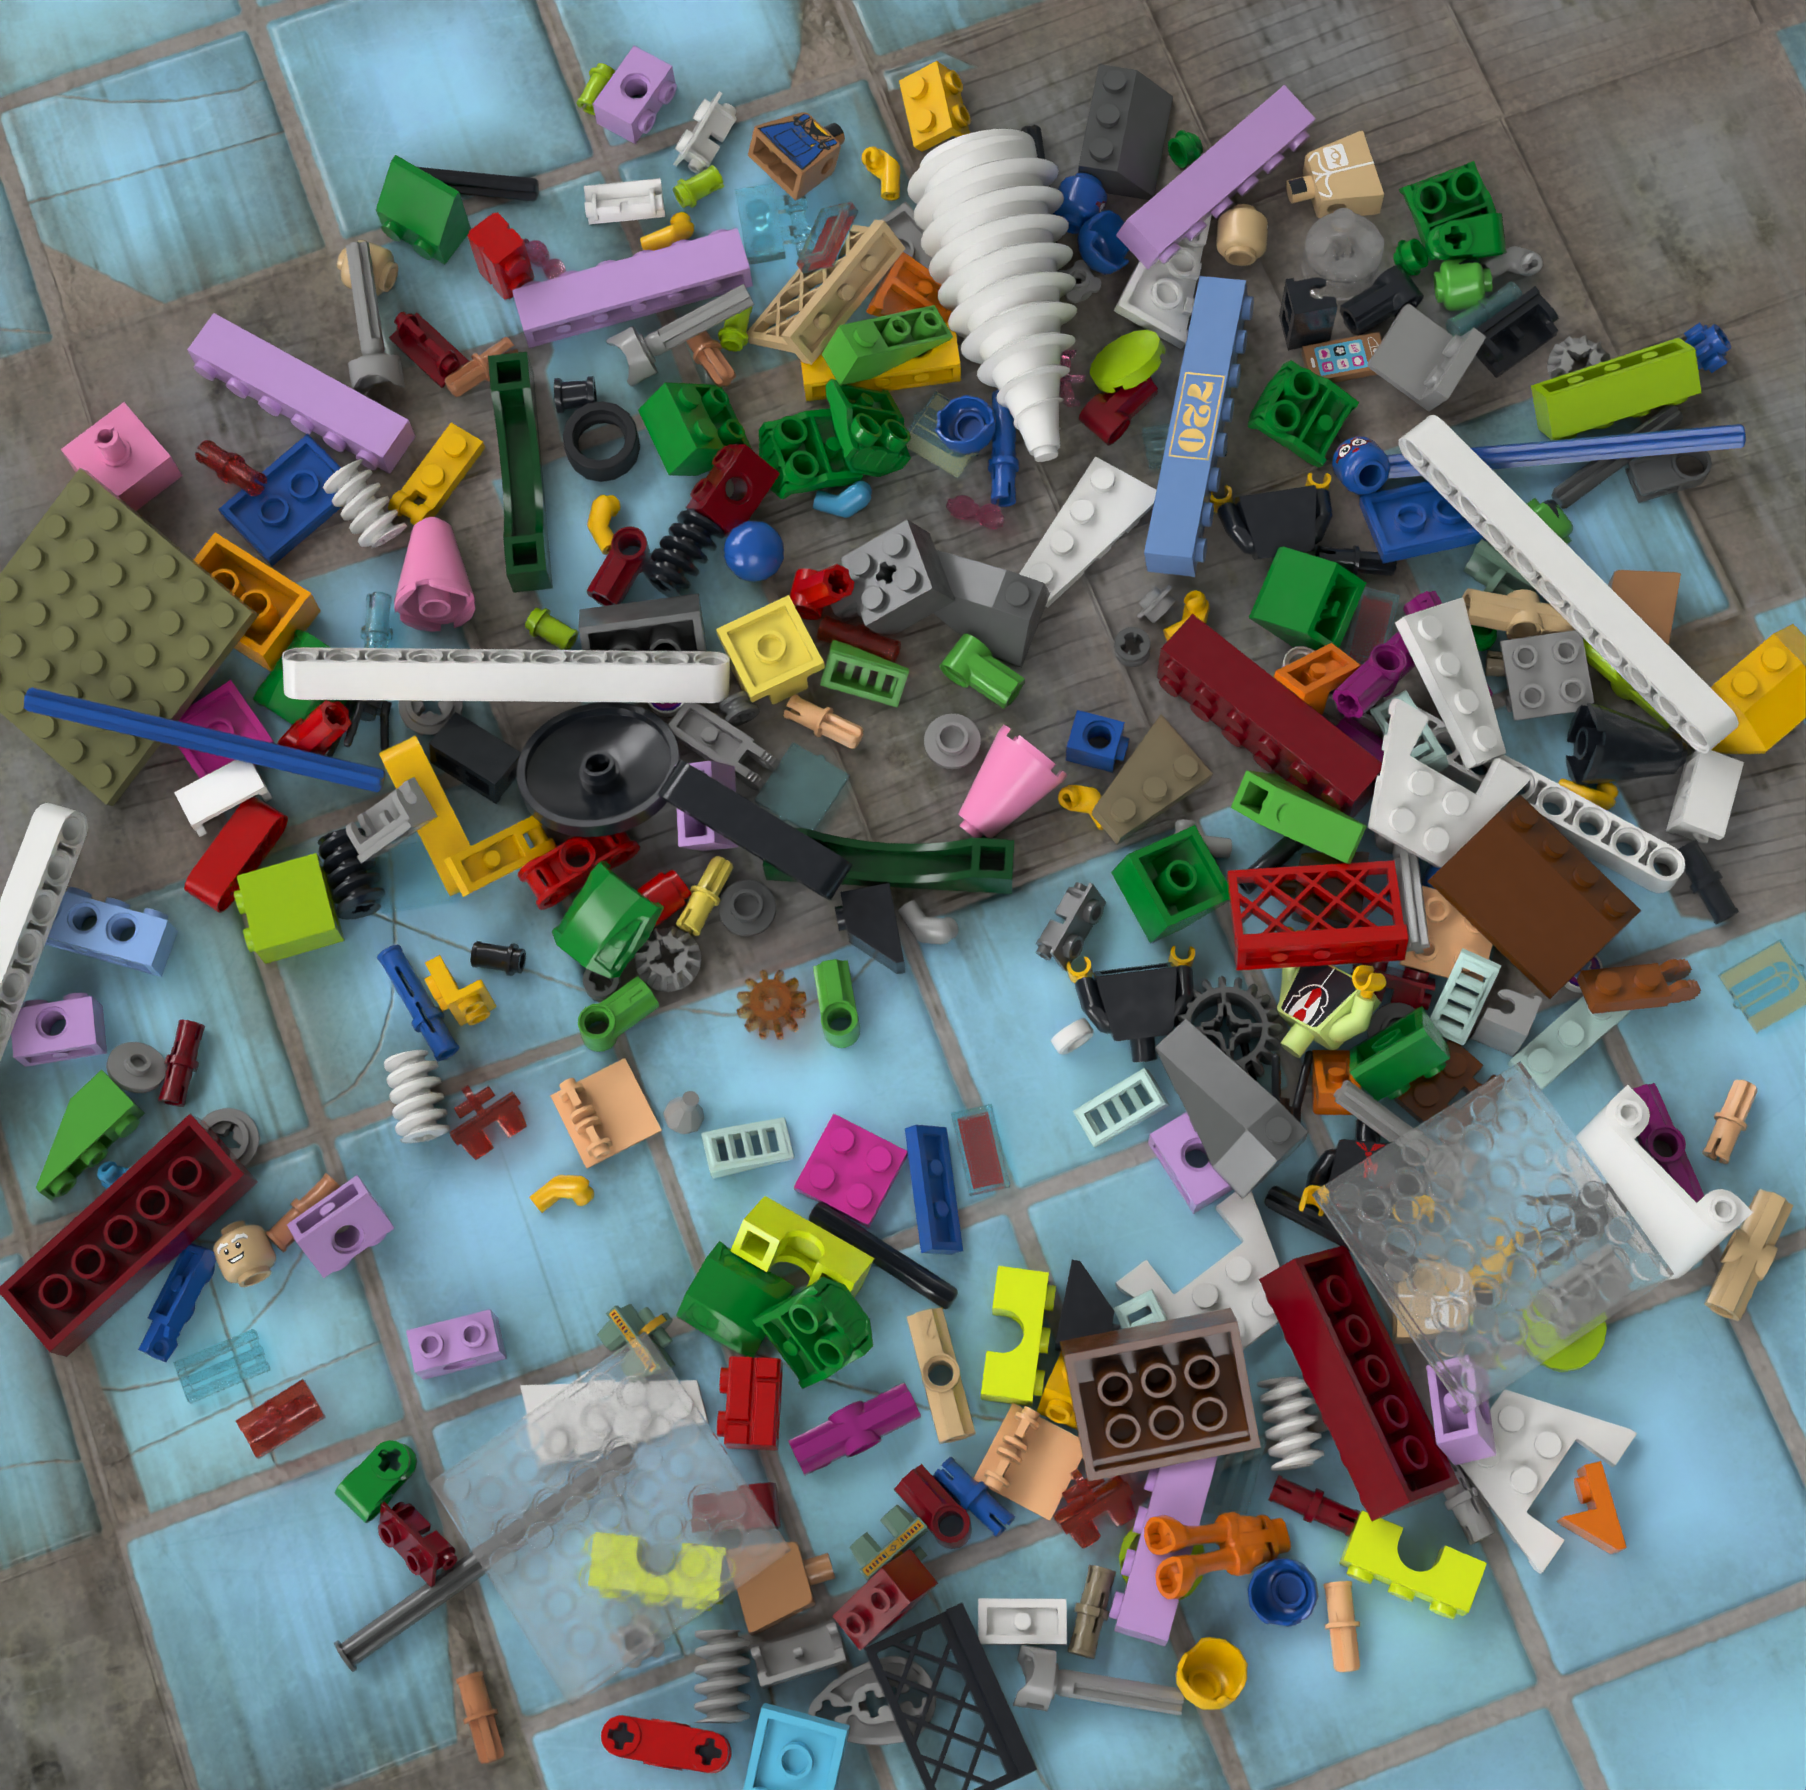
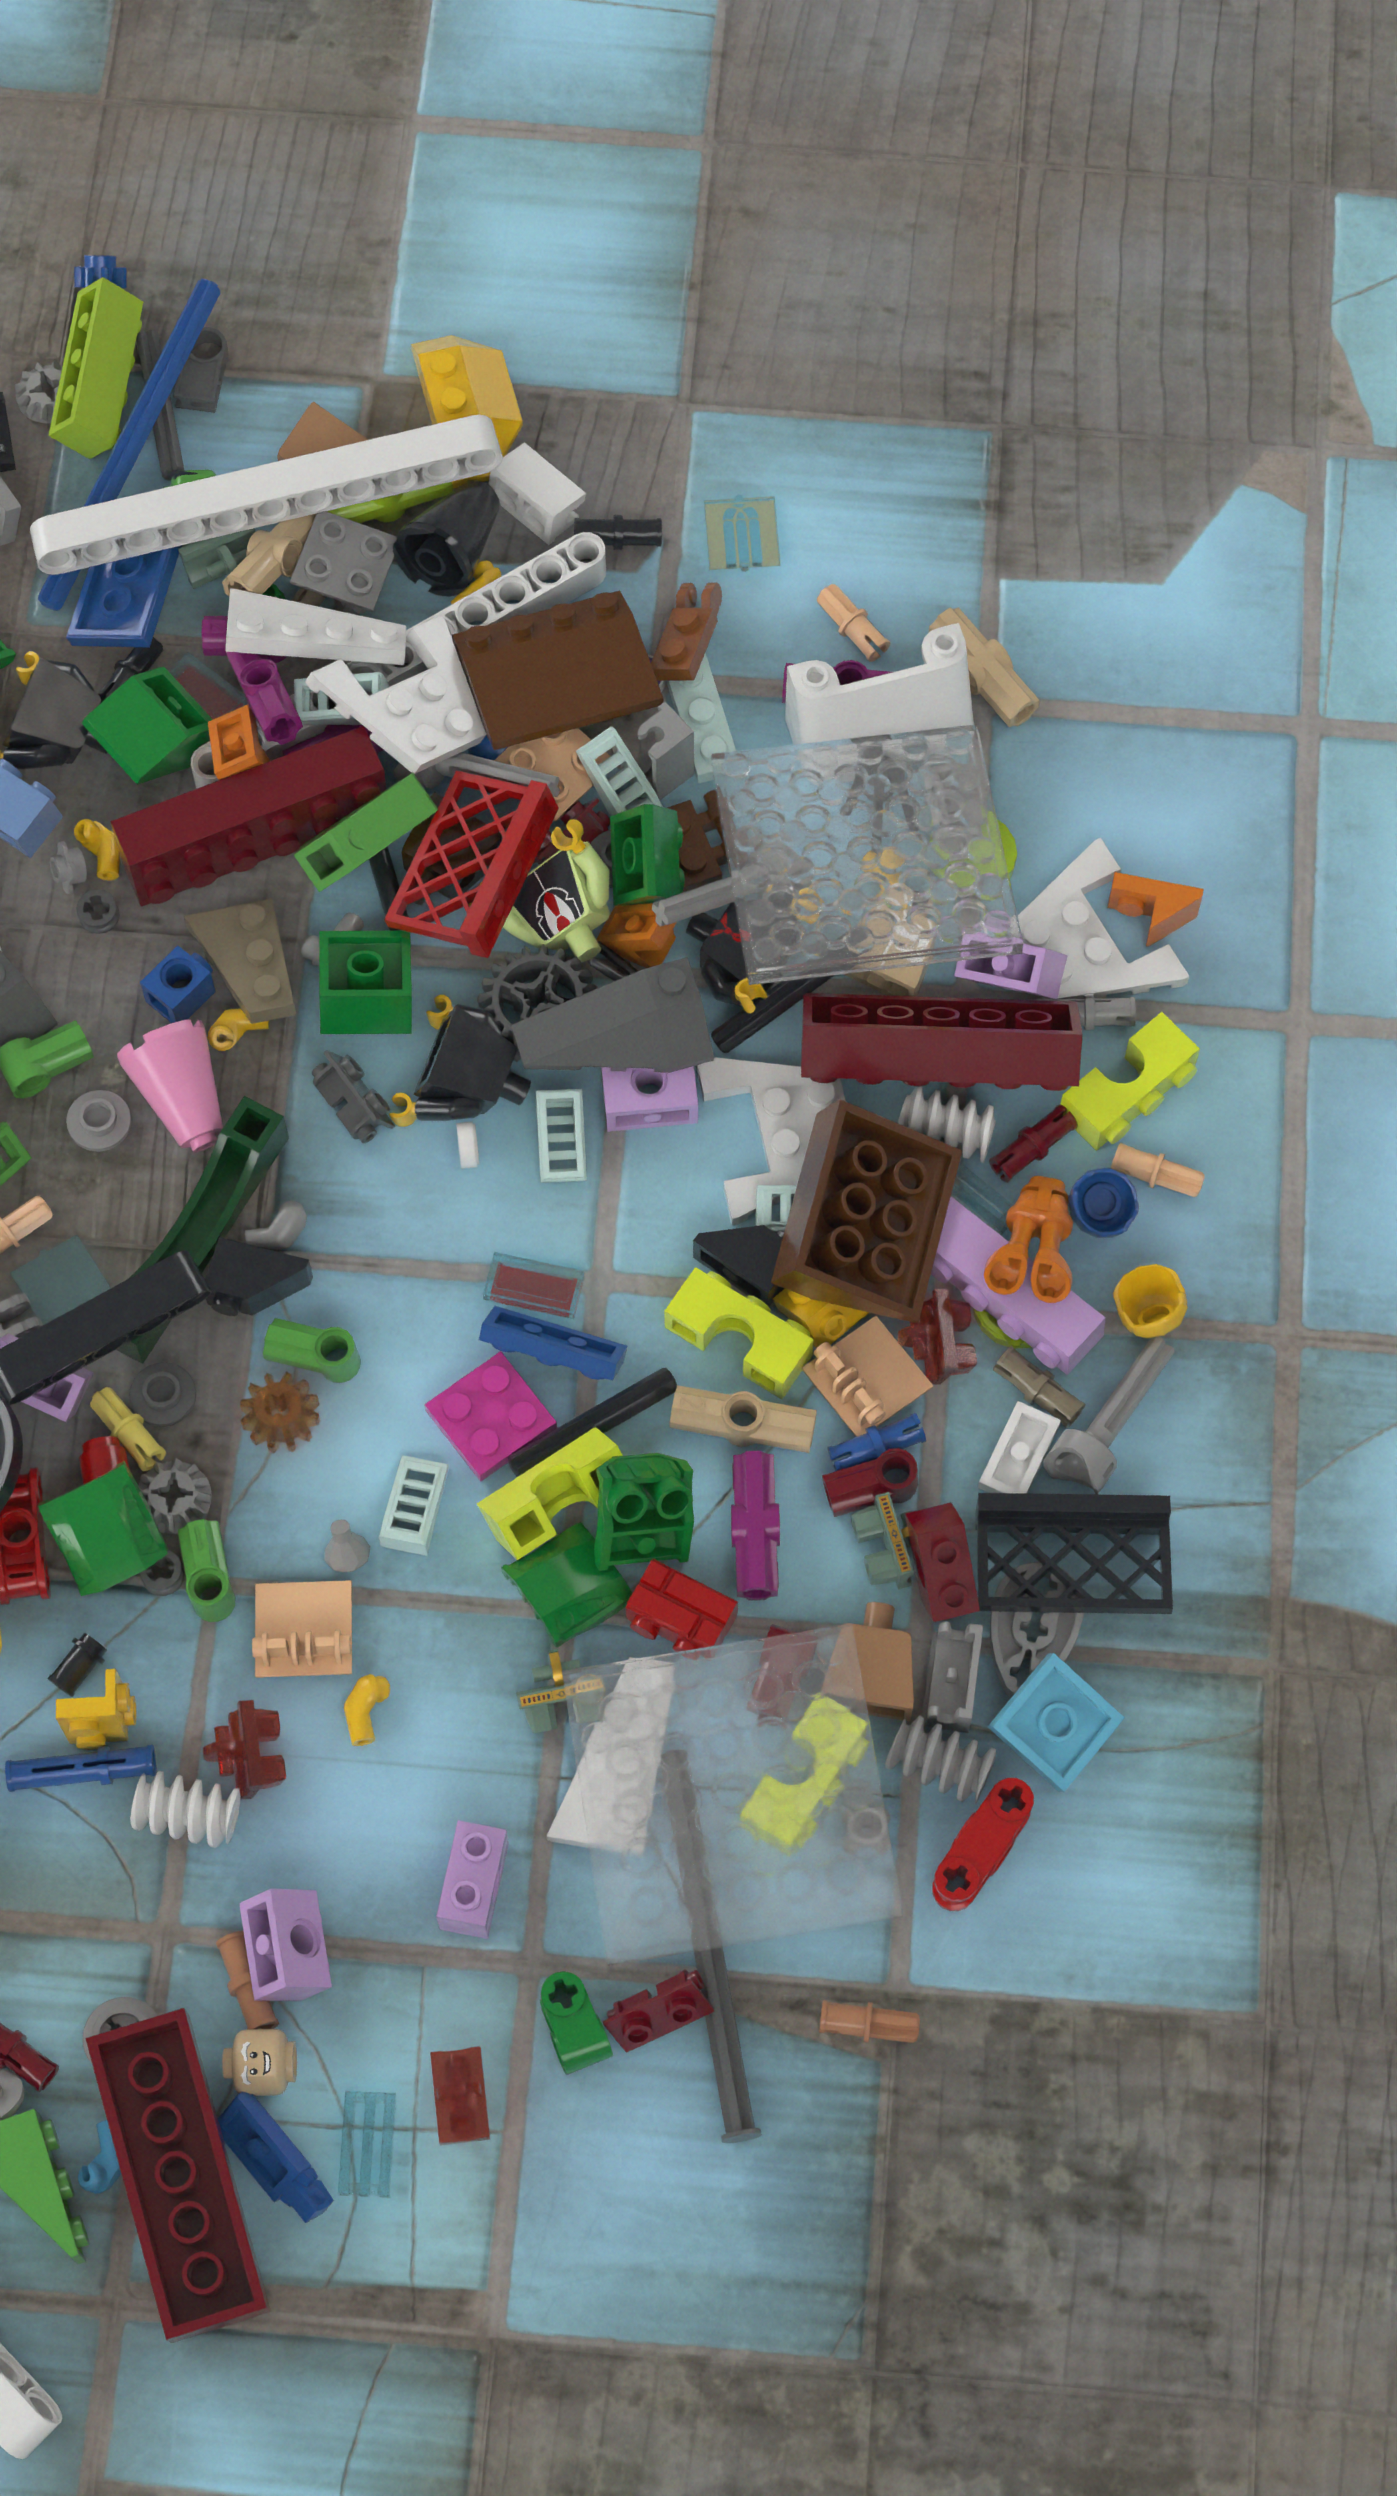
camera: 70 degrees left, 5 degrees down
(1361, 465) = (38, 618): blue head -> none

